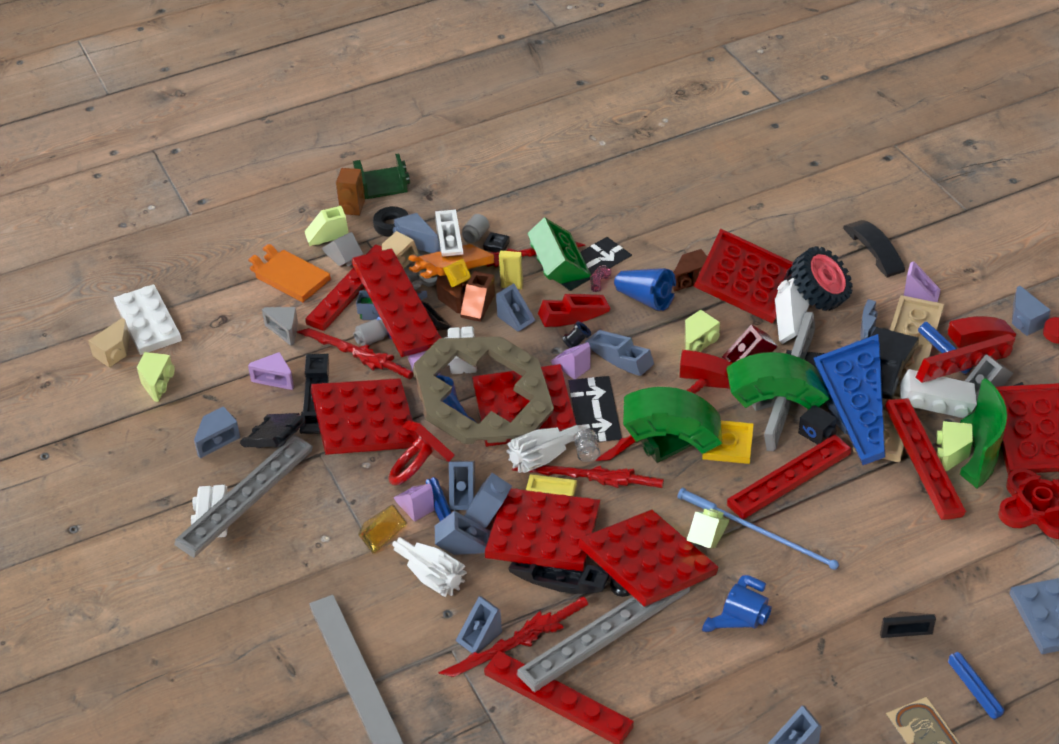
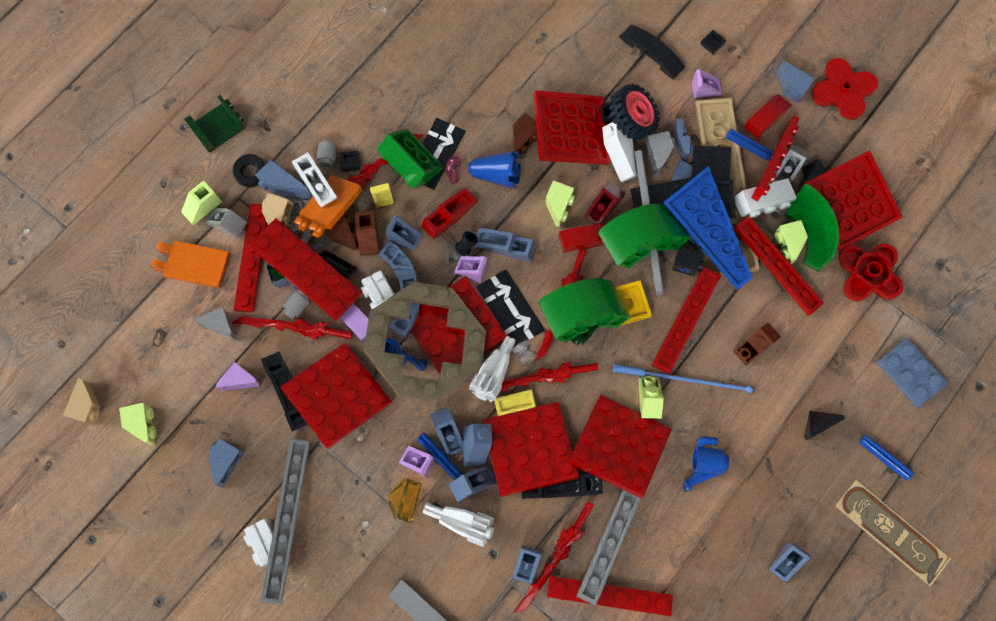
camera: 25 degrees left, 30 degrees up
(147, 319) = (96, 361): white plate -> none
(273, 430) = (273, 443): black plate -> none
(350, 191) = (200, 156): dark orange brick -> none
(425, 444) = (407, 413): red tile -> none
(457, 272) = (342, 221): yellow tile -> none
(472, 376) = (406, 275): none -> sand blue tile
(838, 324) = (659, 150): none -> light grey slope
(864, 521) = (757, 343): none -> copper slope
(948, 258) = (713, 42): none -> black tile

